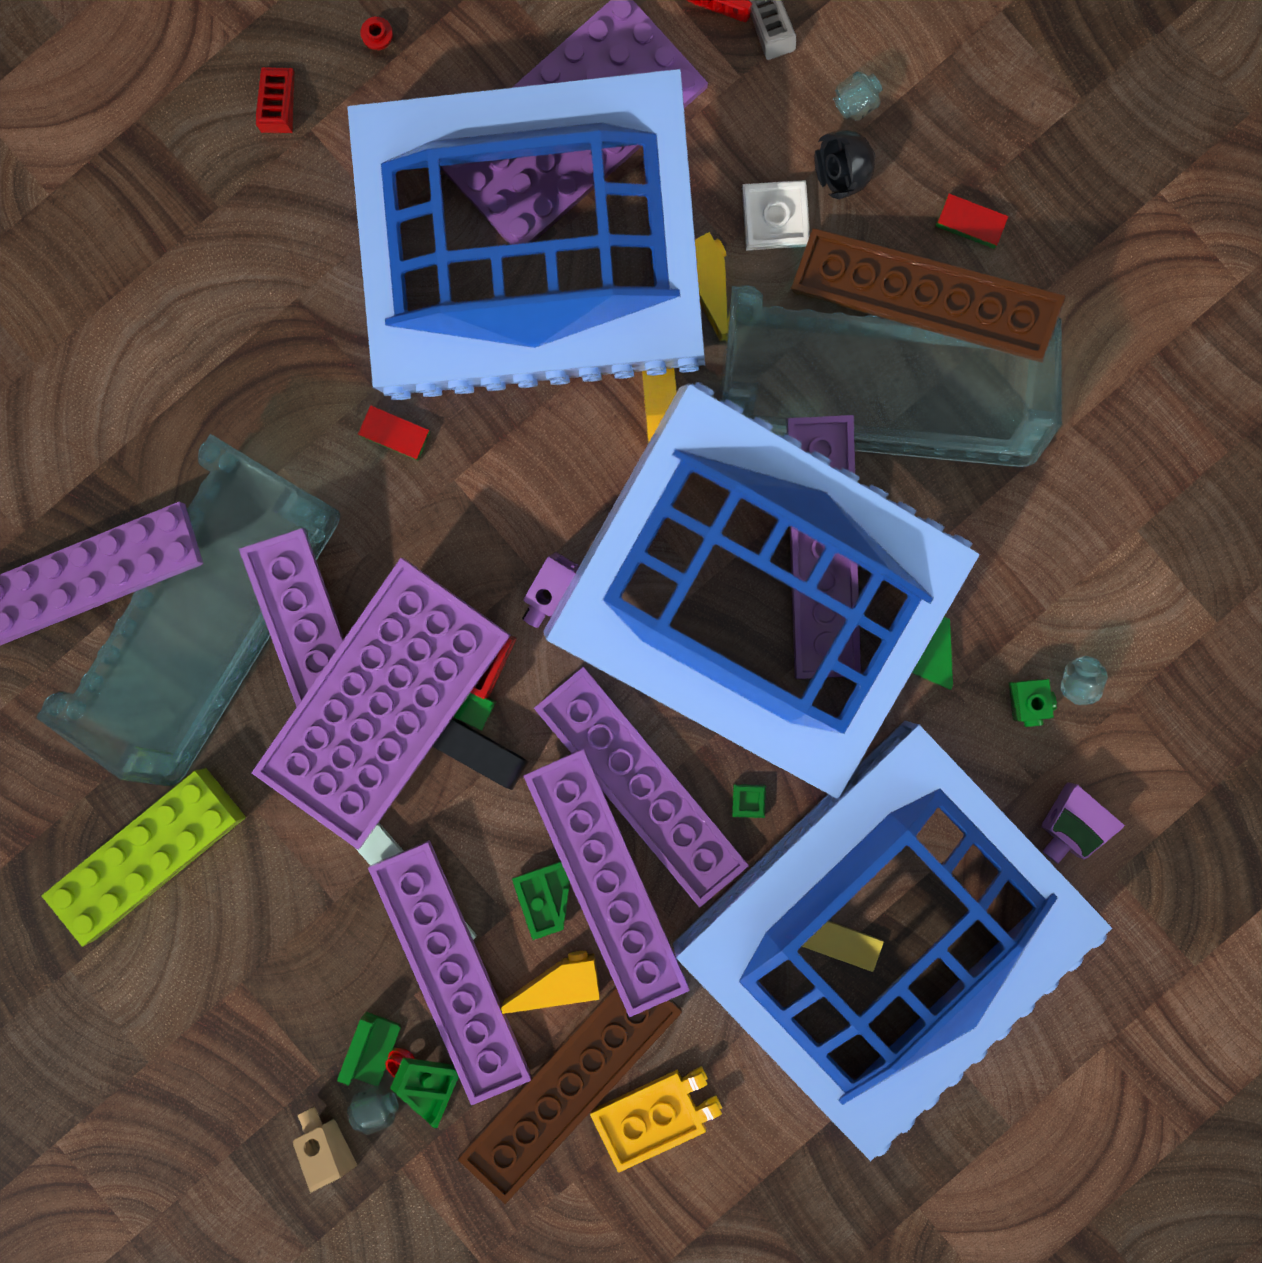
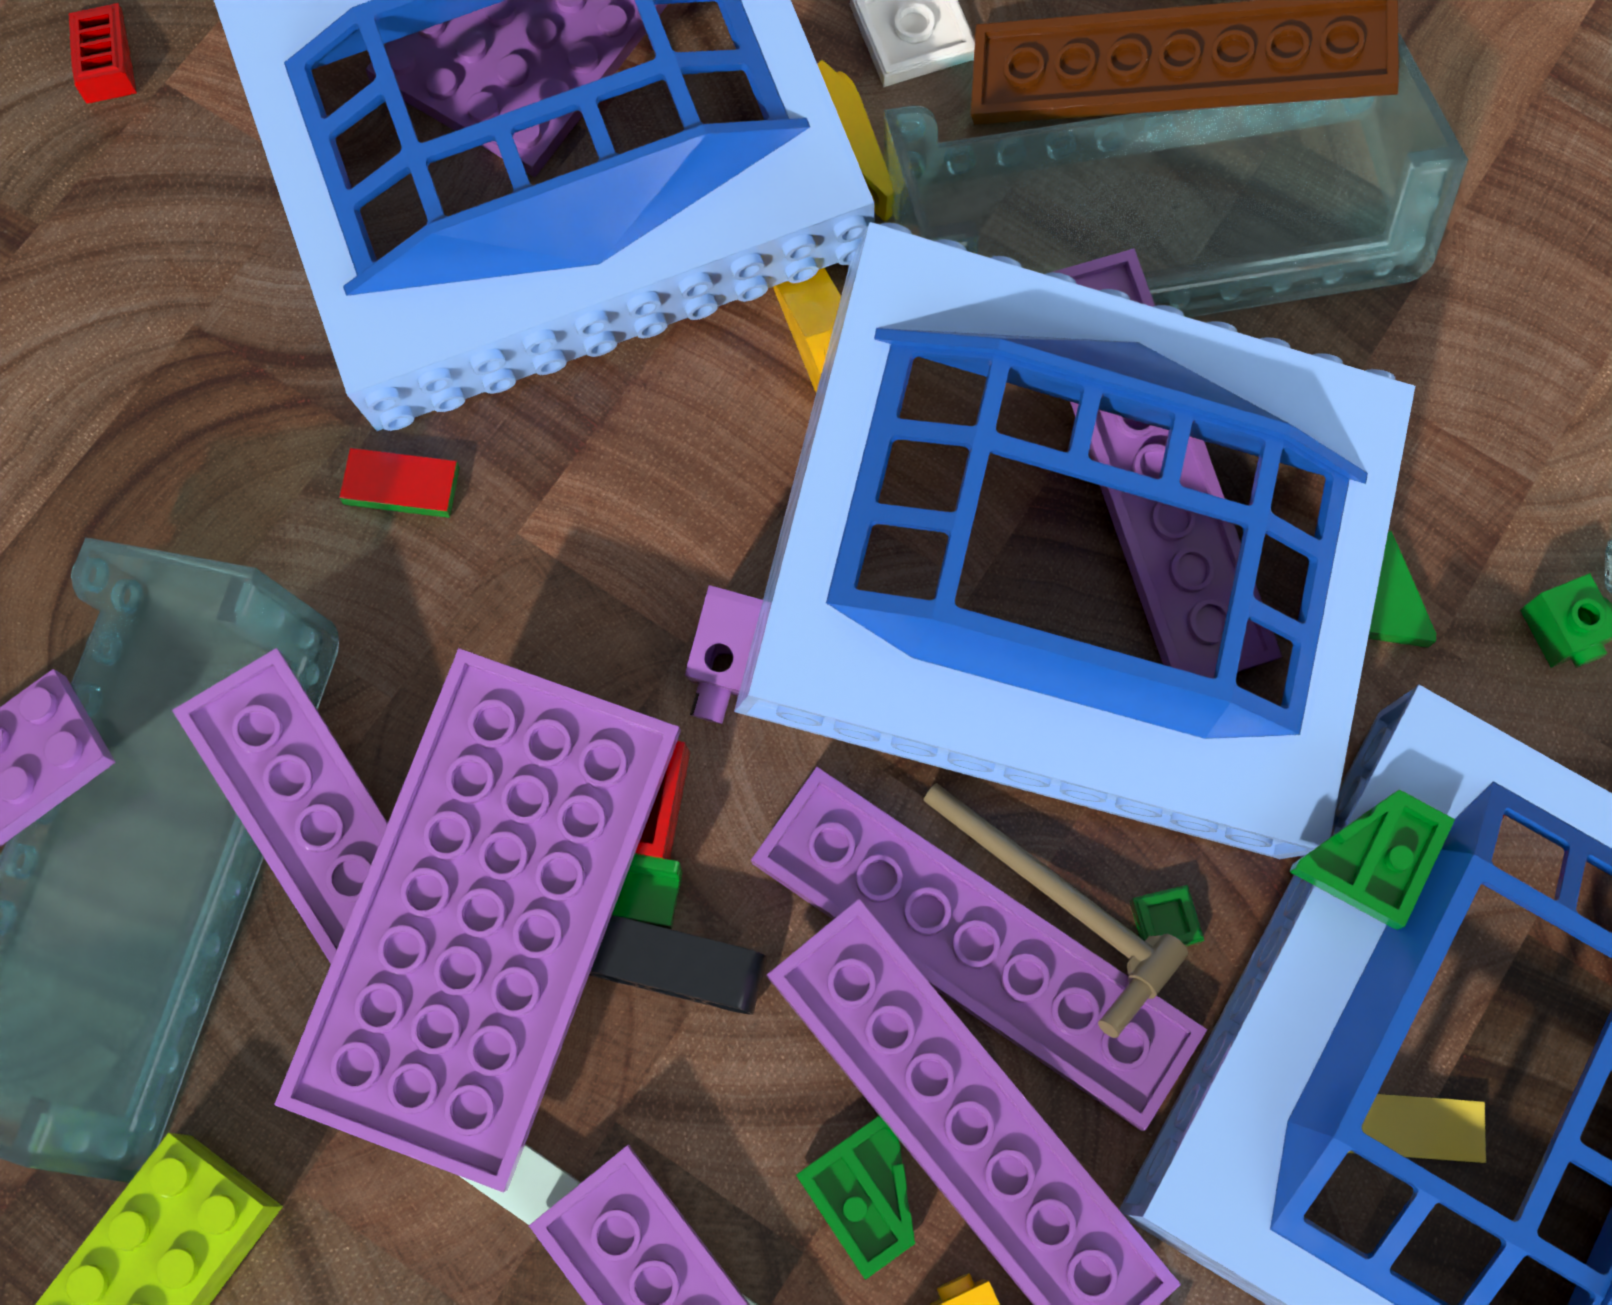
camera: 20 degrees left, 15 degrees down
(730, 822) = (1150, 961): none -> dark tan bar
(860, 814) = (1380, 858): none -> green wing

